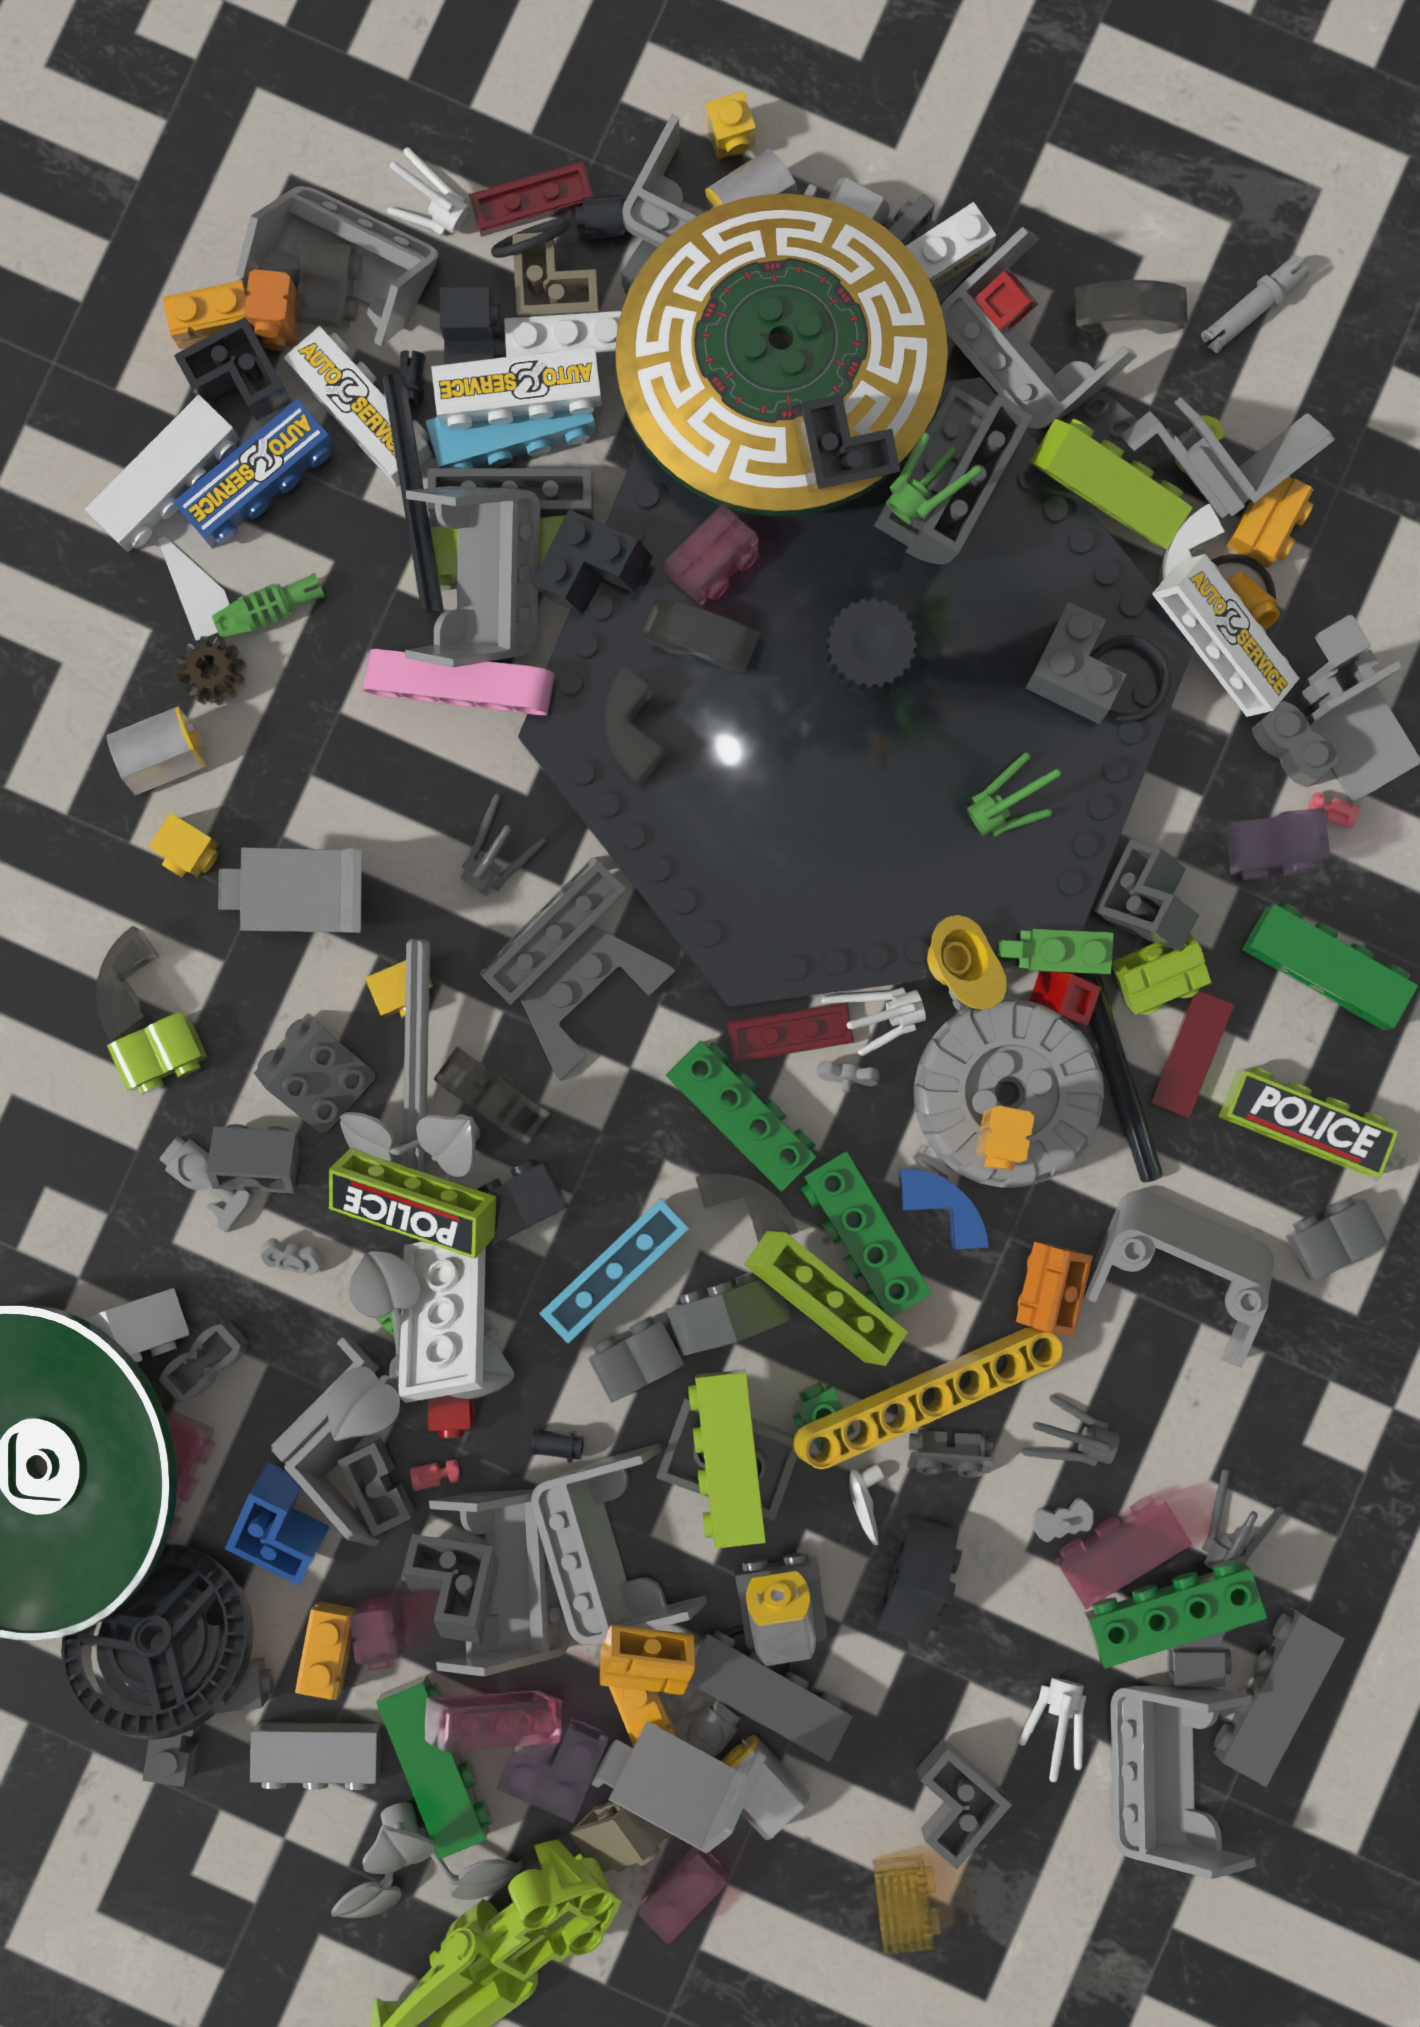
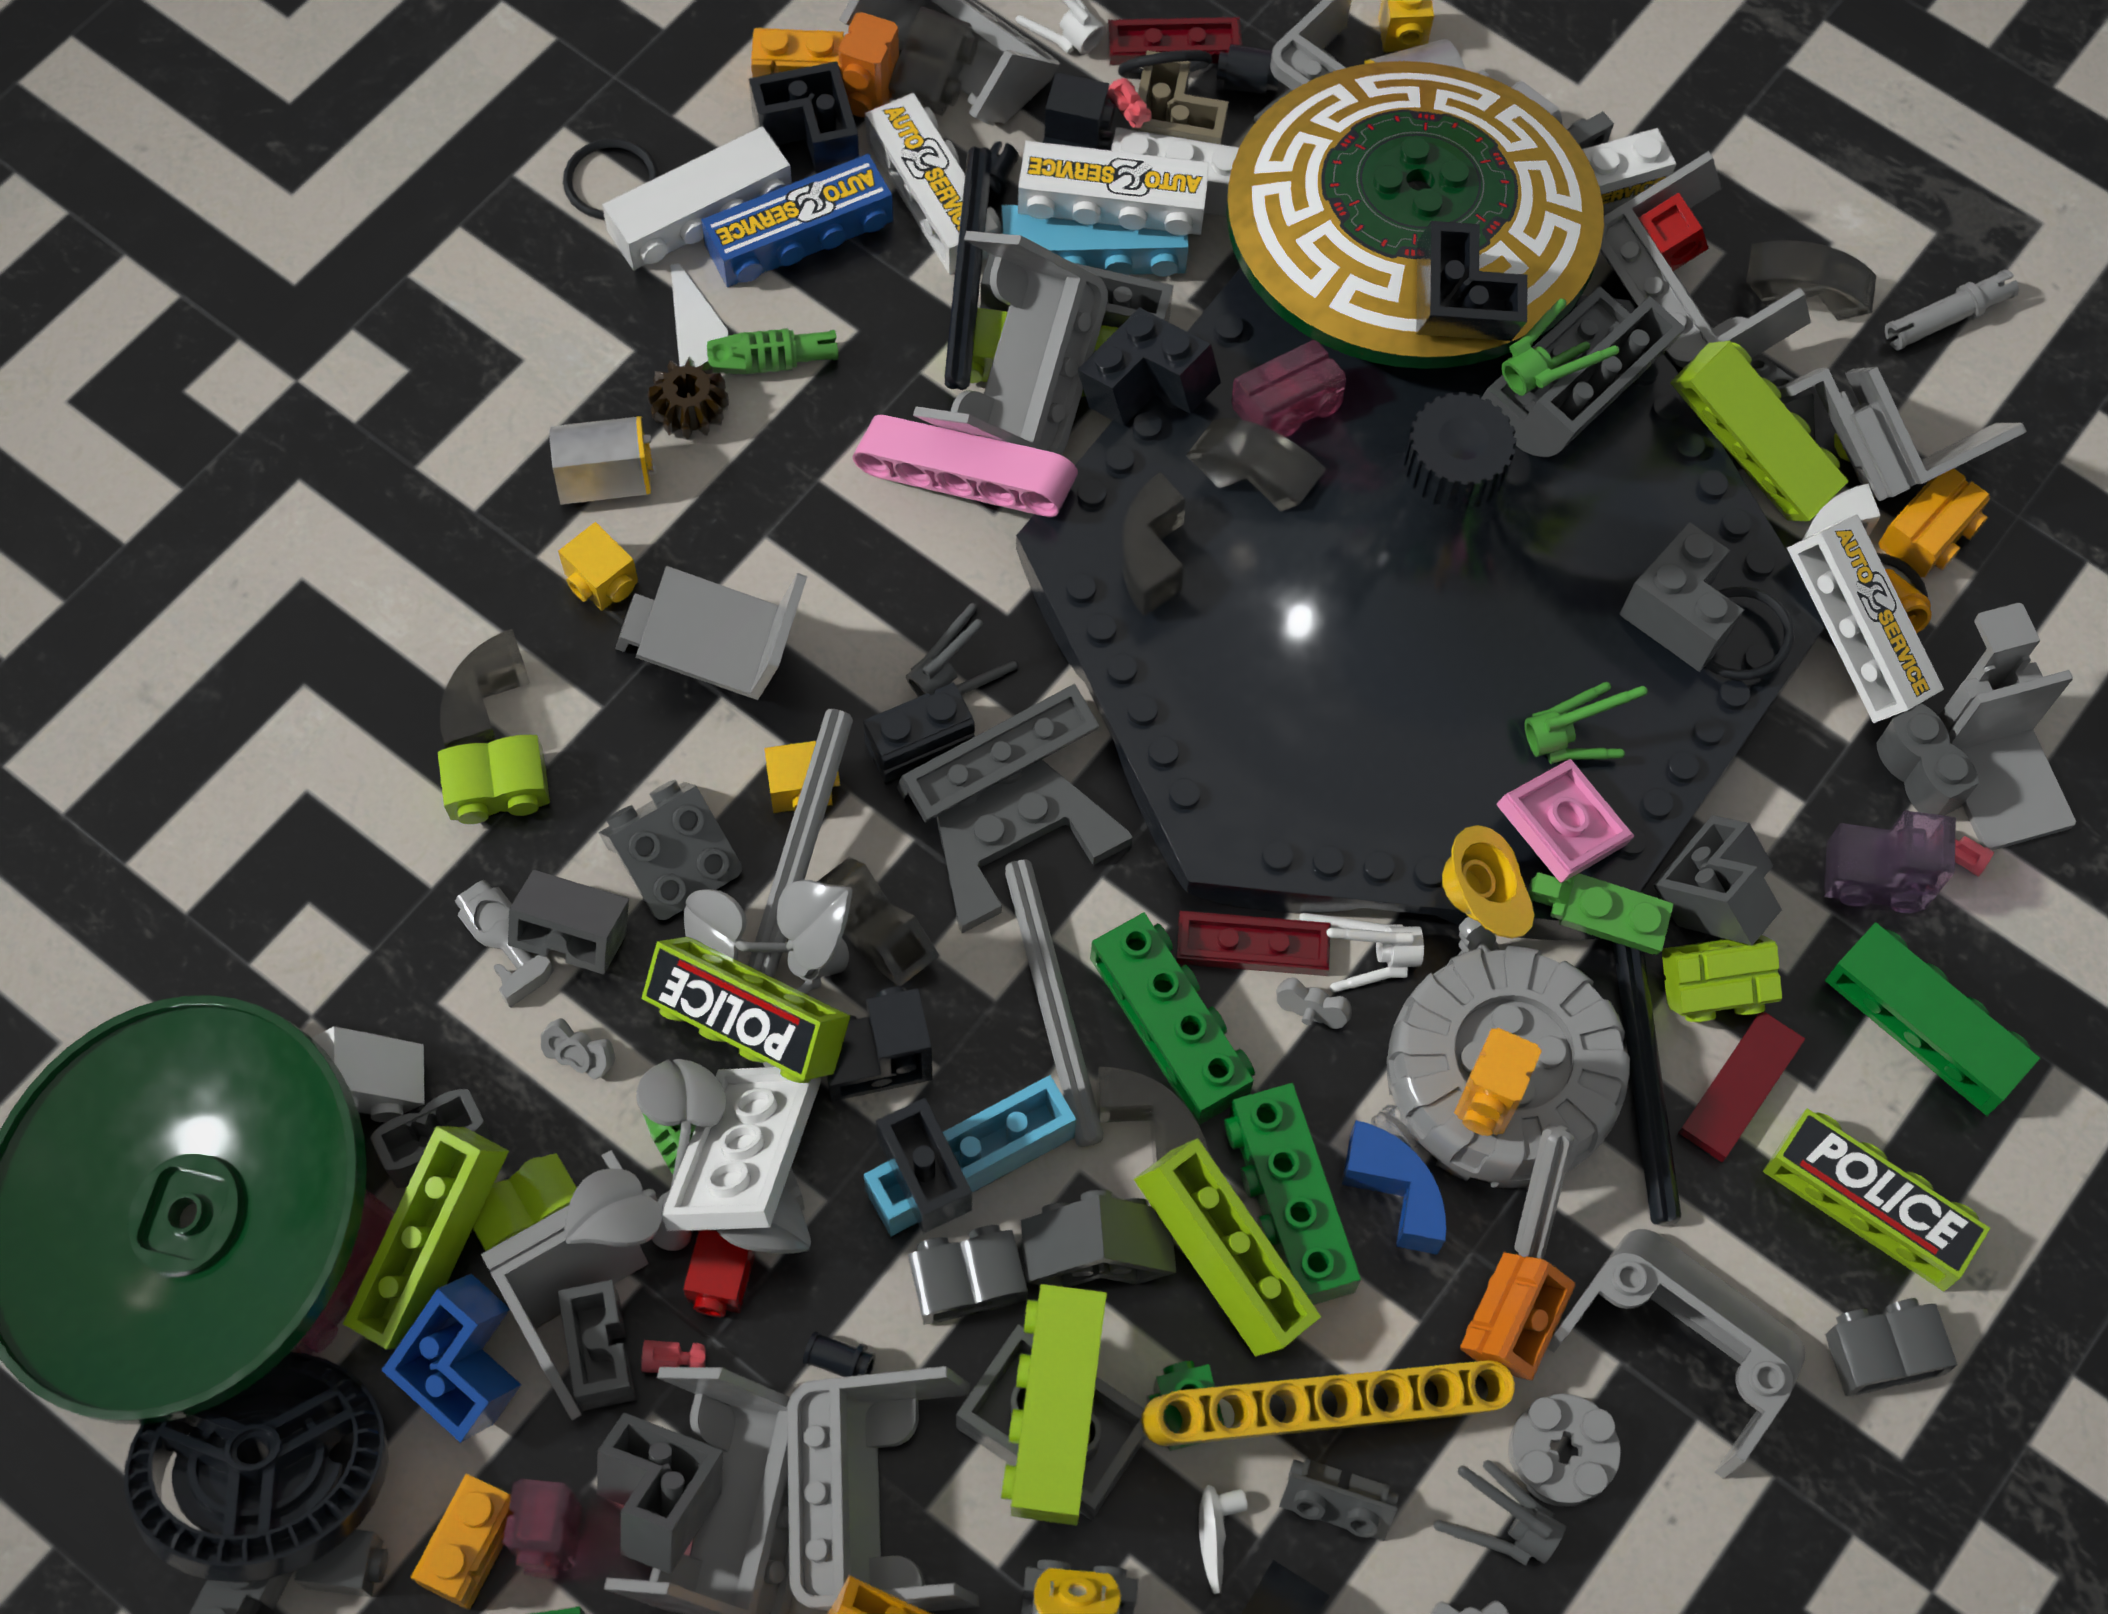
camera: 10 degrees right, 20 degrees down
(43, 468) = (591, 147): none -> black tyre
(226, 1445) = (425, 1233): none -> lime brick
(289, 1393) = (523, 1200): none -> lime brick
(483, 926) = (918, 731): none -> black brick
(510, 296) = (1129, 102): none -> coral piece
(584, 1306) = (924, 1165): none -> black brick
(646, 1122) = (1053, 1002): none -> light grey axle
(1015, 888) = (1565, 820): none -> bright pink tile
(1056, 1194) = (1544, 1191): none -> light grey axle
(1066, 995) = (1607, 964): red brick -> none
(1126, 1390) = (1539, 1467): none -> light grey plate

